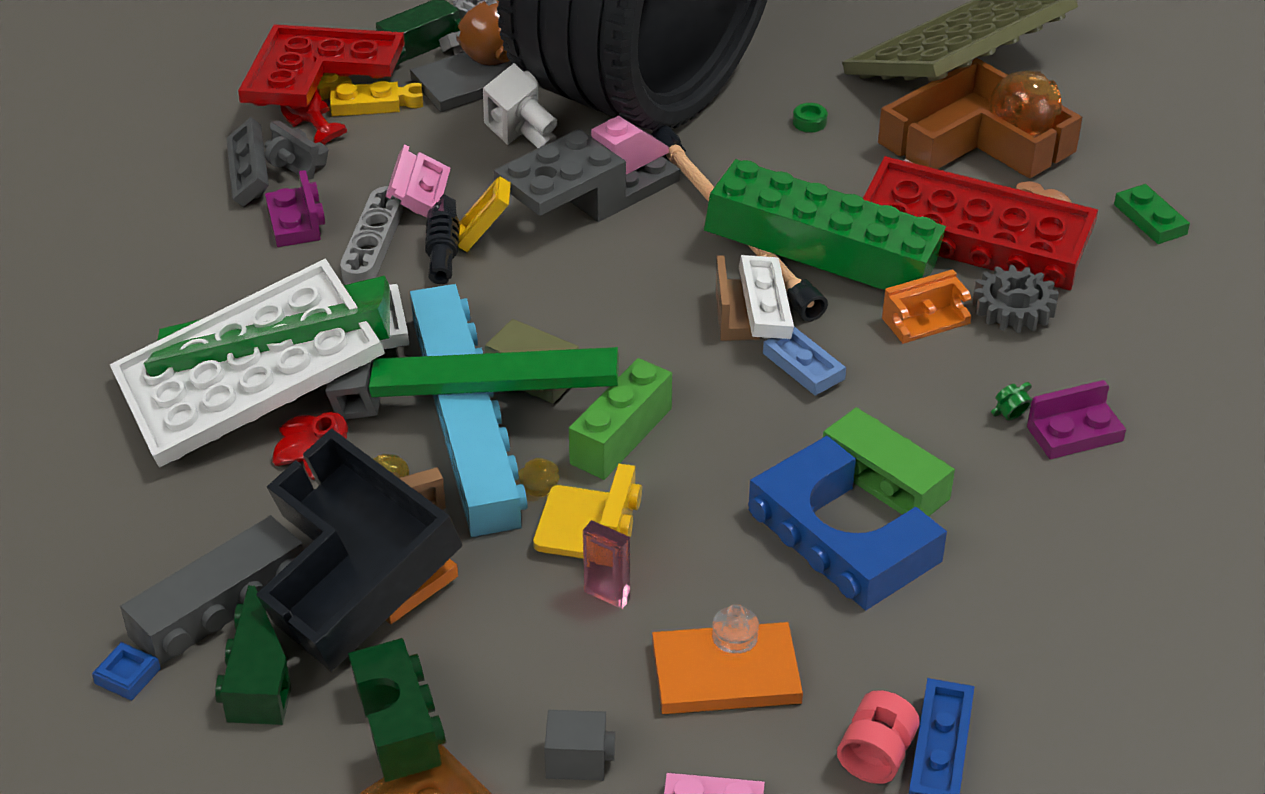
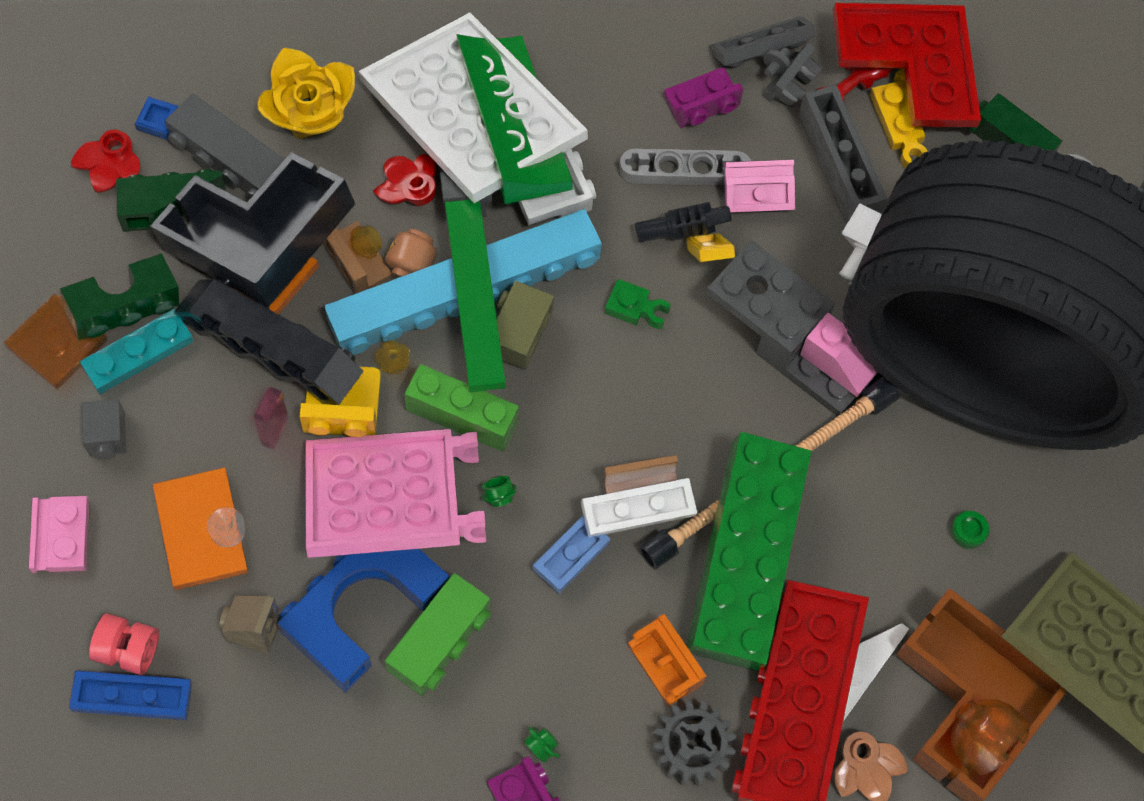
camera: 75 degrees right, 25 degrees up
(167, 504) = (299, 77): none -> yellow brick
(172, 725) = (105, 164): none -> red plate
(408, 120) = (841, 151): none -> dark grey brick
(417, 440) = (410, 253): none -> nougat head
(469, 716) = (136, 351): none -> teal plate
(488, 565) = (276, 342): none -> black brick
(523, 293) = (631, 302): none -> green plate
(721, 475) = (387, 493): none -> bright pink plate
(723, 404) = (498, 491): none -> green plate
(864, 604) = (251, 622): none -> dark tan slope

